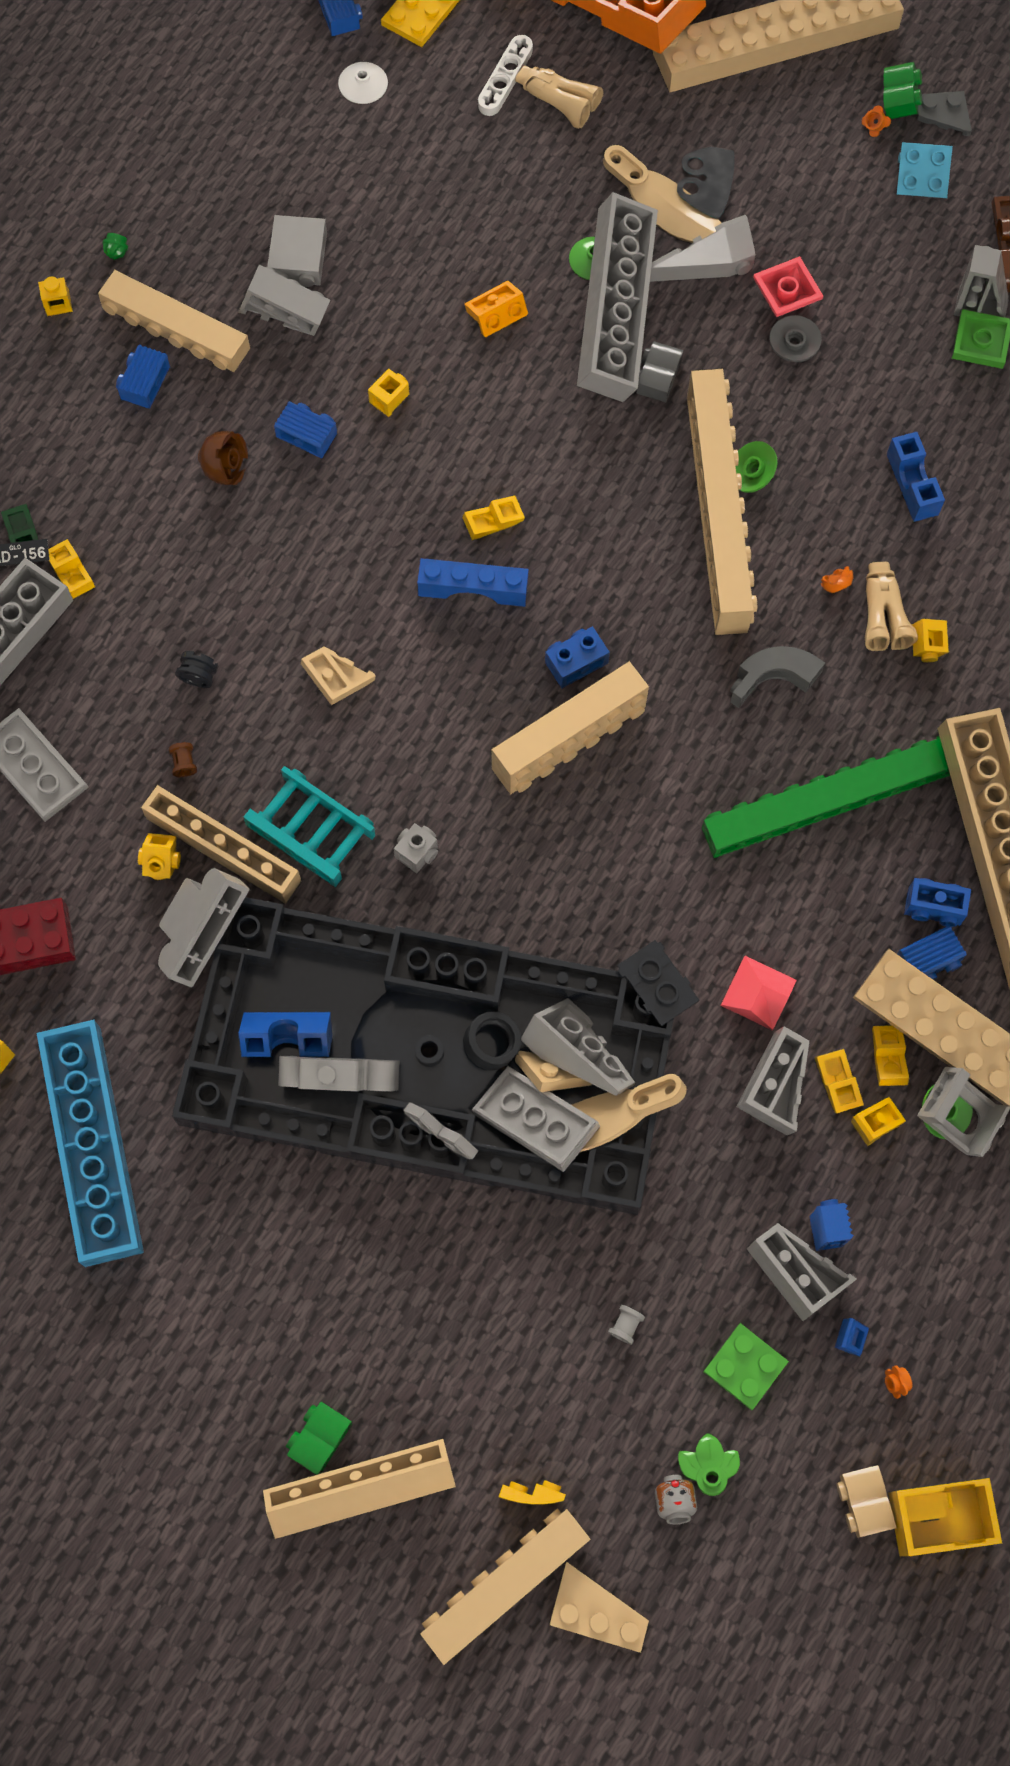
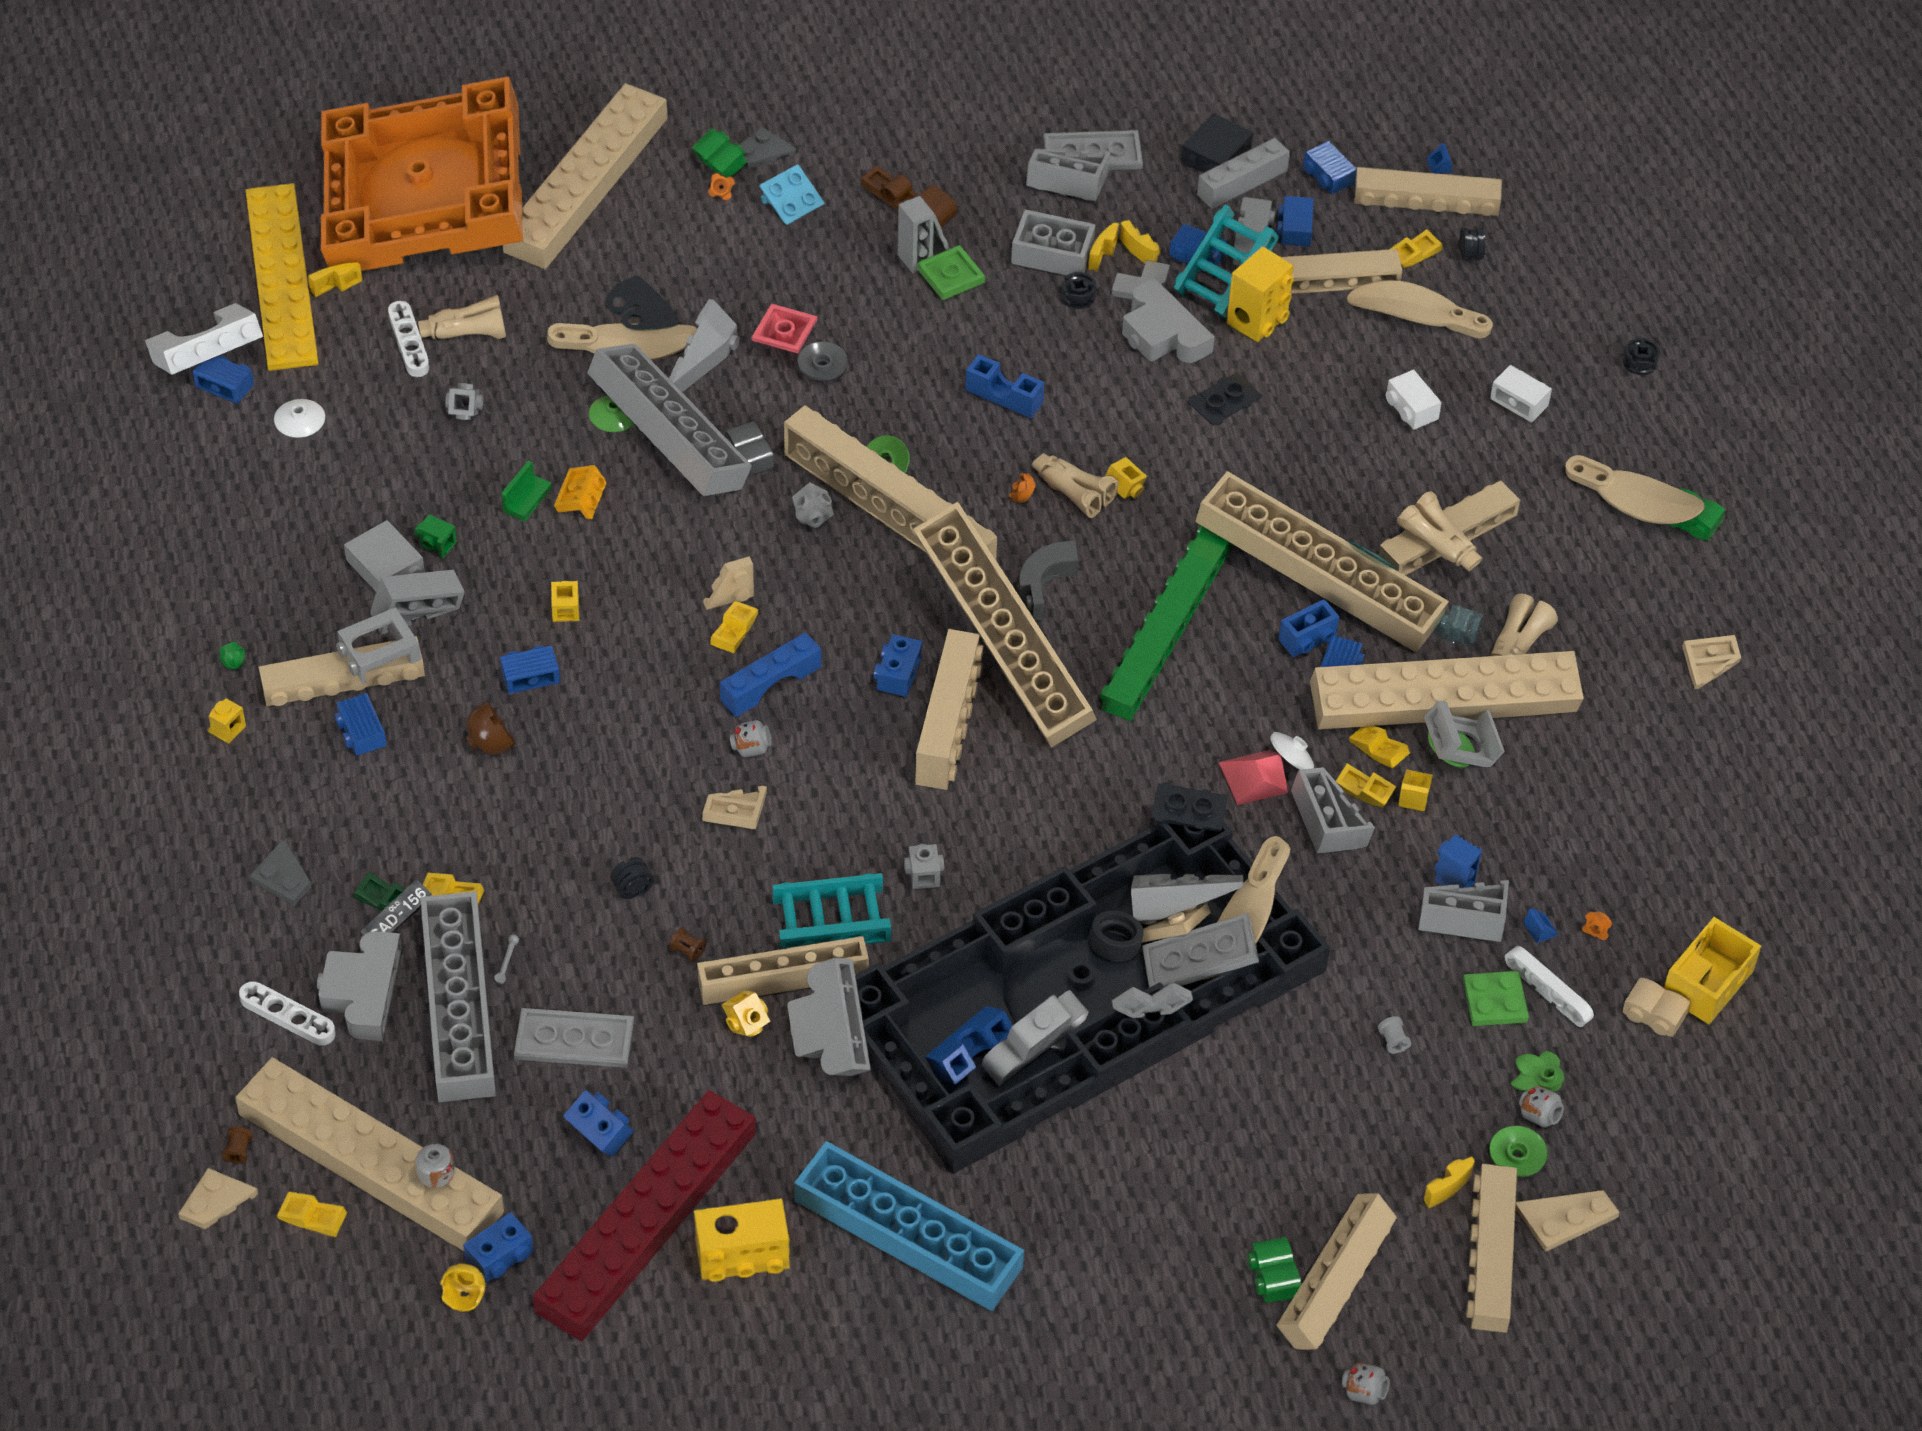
camera: 45 degrees left, 20 degrees down
(33, 669) = (500, 977): none -> light grey hinge
(223, 338) = (359, 662): none -> light grey panel
(283, 1603) = (1366, 1383): none -> light grey head
(353, 261) = (436, 535): none -> green brick
(403, 625) = (751, 738): none -> light grey head
(454, 274) = (524, 493): none -> green panel
(485, 160) = (455, 403): none -> light grey brick
(522, 480) = (733, 584): none -> tan wing
(631, 1517) = (1520, 1141): none -> bright green dish
(654, 461) = (812, 505): none -> light grey brick
(679, 693) = (1005, 624): none -> tan brick
(798, 1399) = (1549, 986): none -> white beam
(806, 1000) = (1292, 750): none -> white dish

